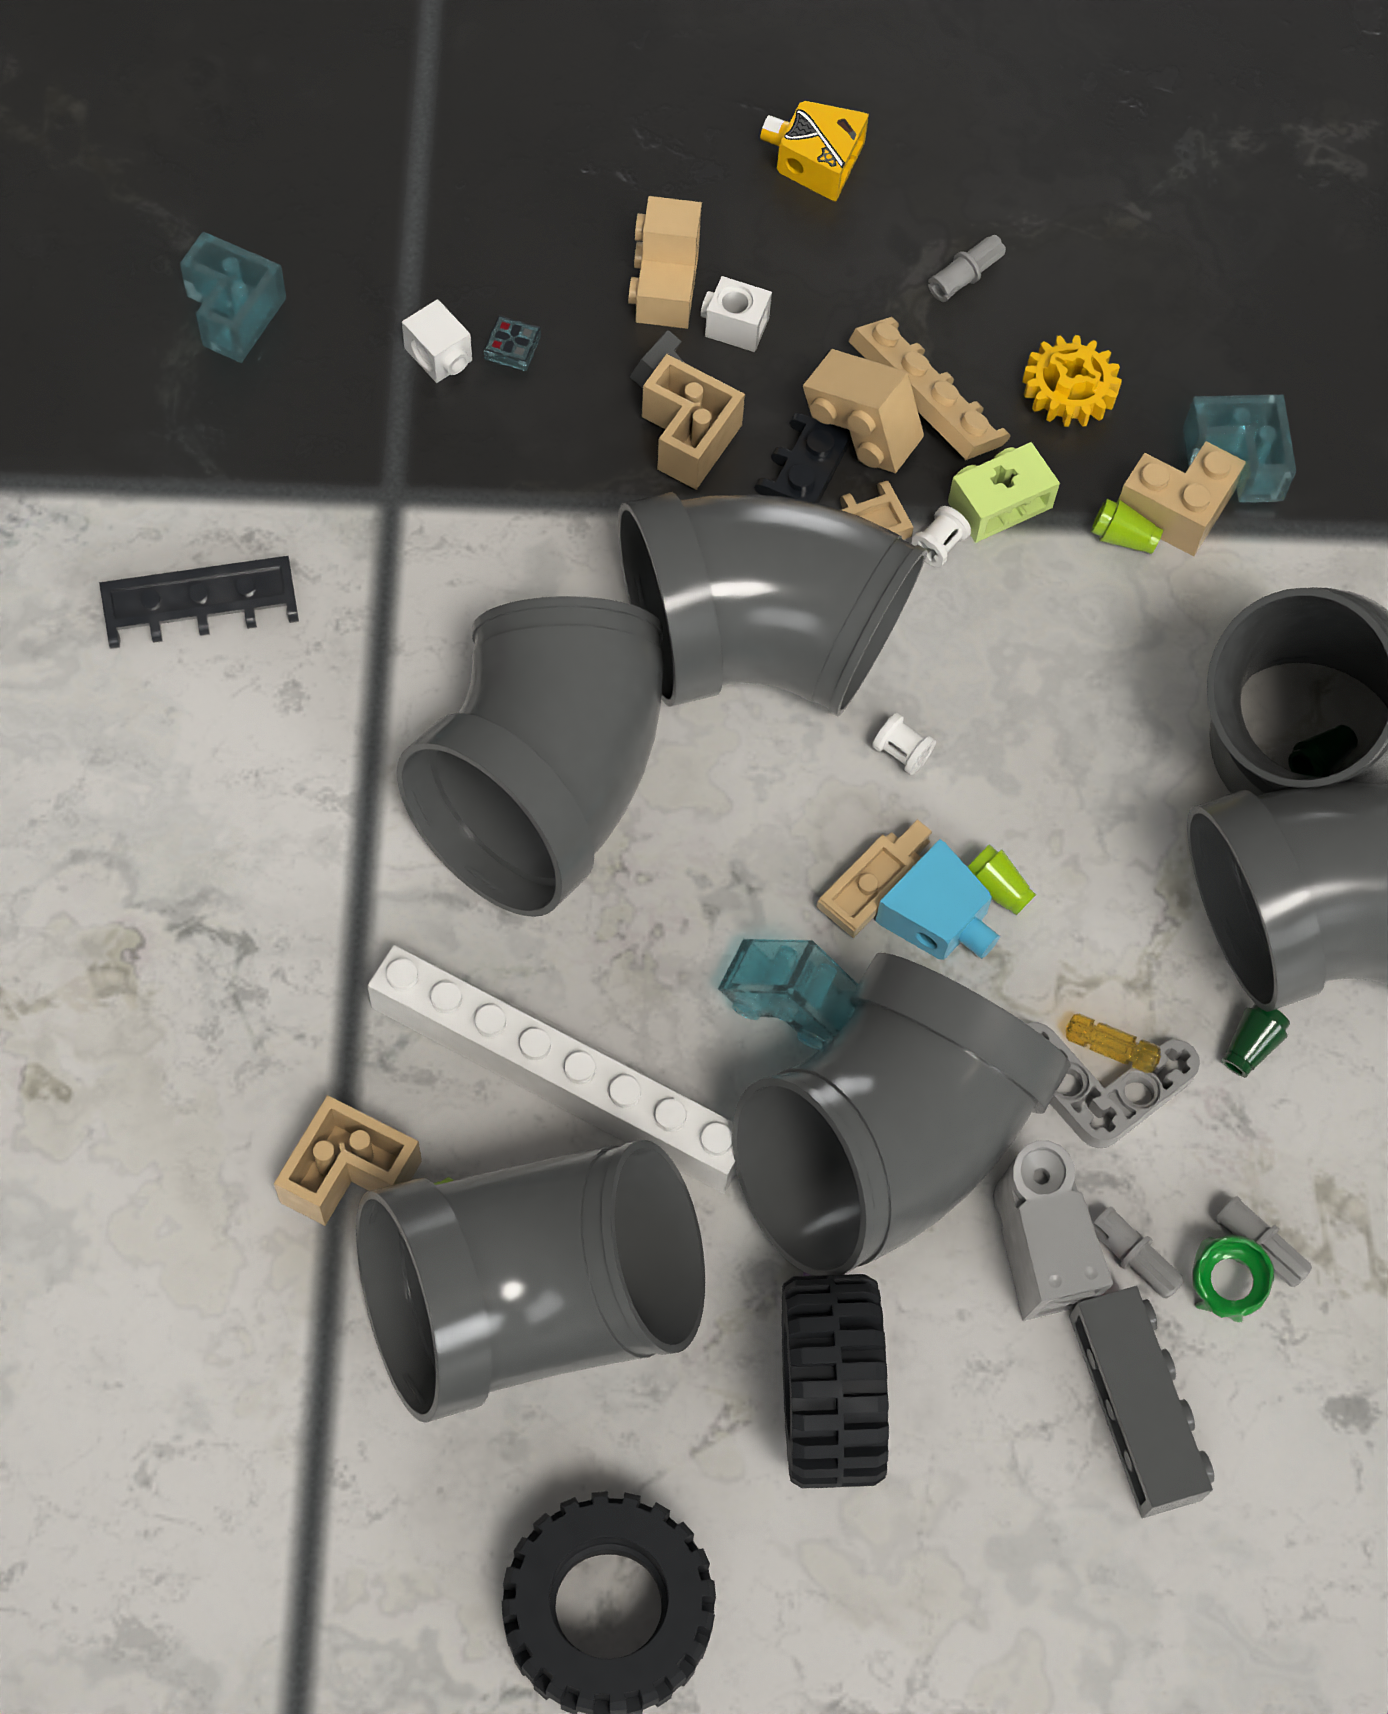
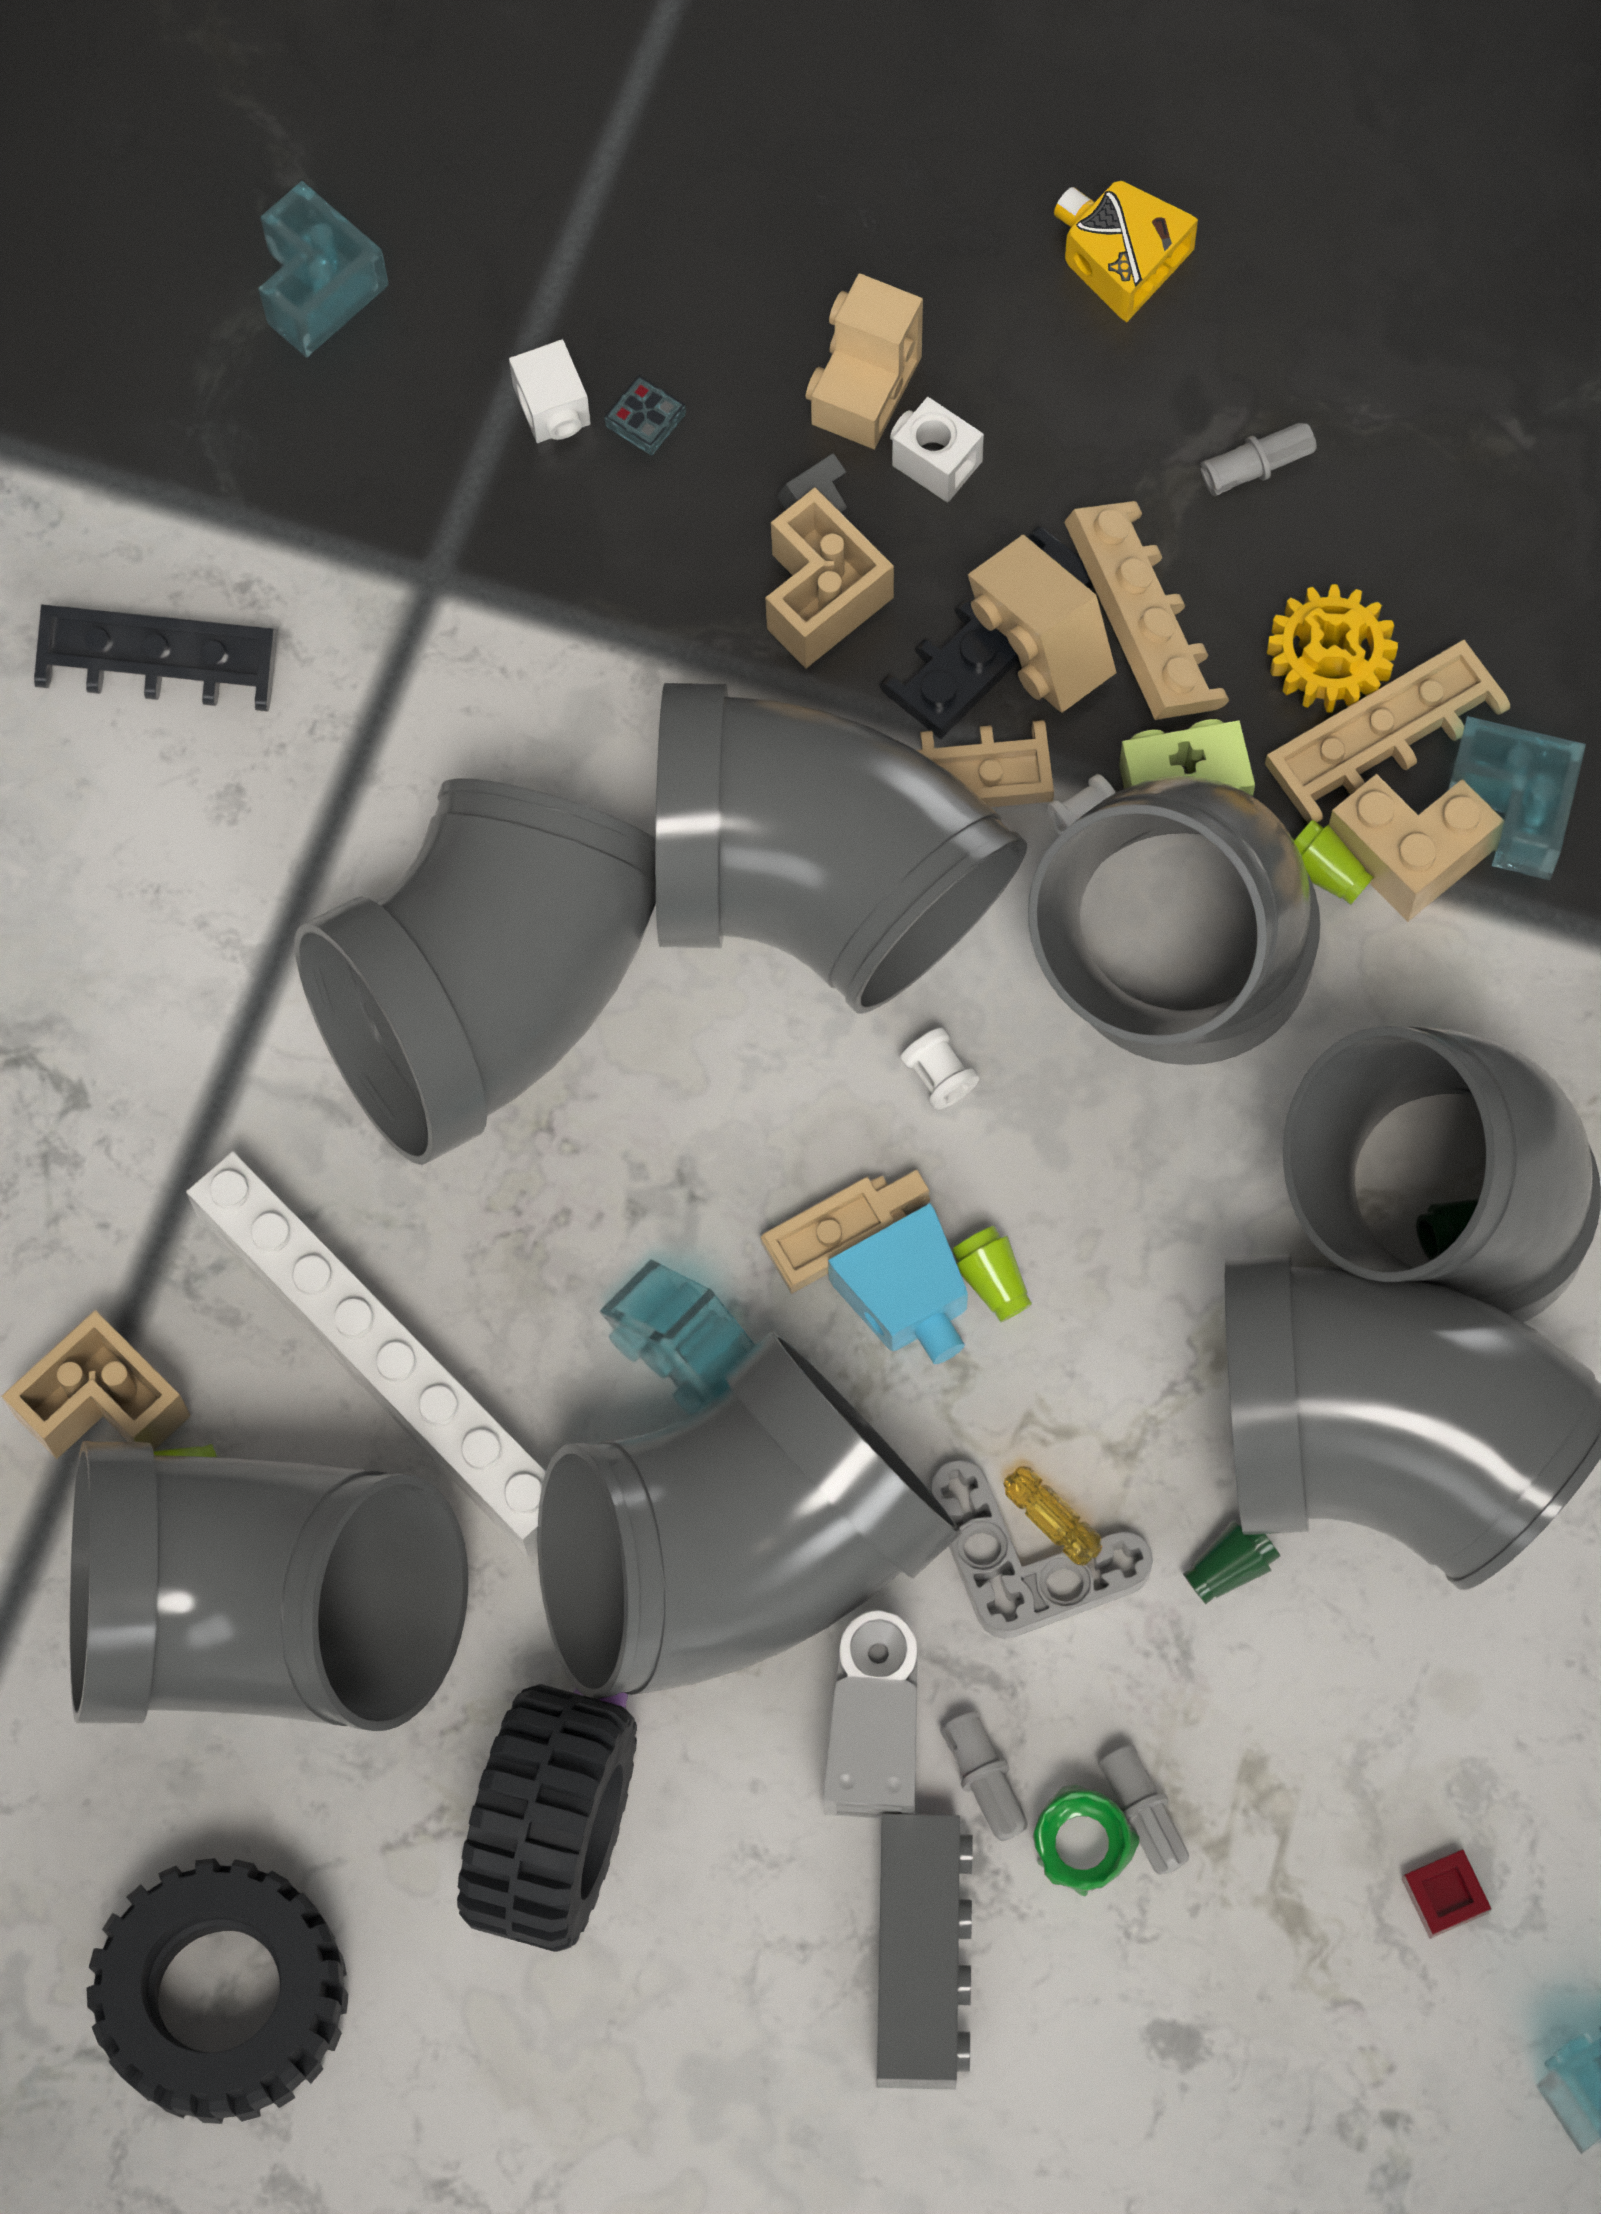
camera: 25 degrees right, 5 degrees up
(1075, 505) = (1279, 892): none -> dark grey cylinder
(1127, 425) = (1384, 727): none -> tan hinge

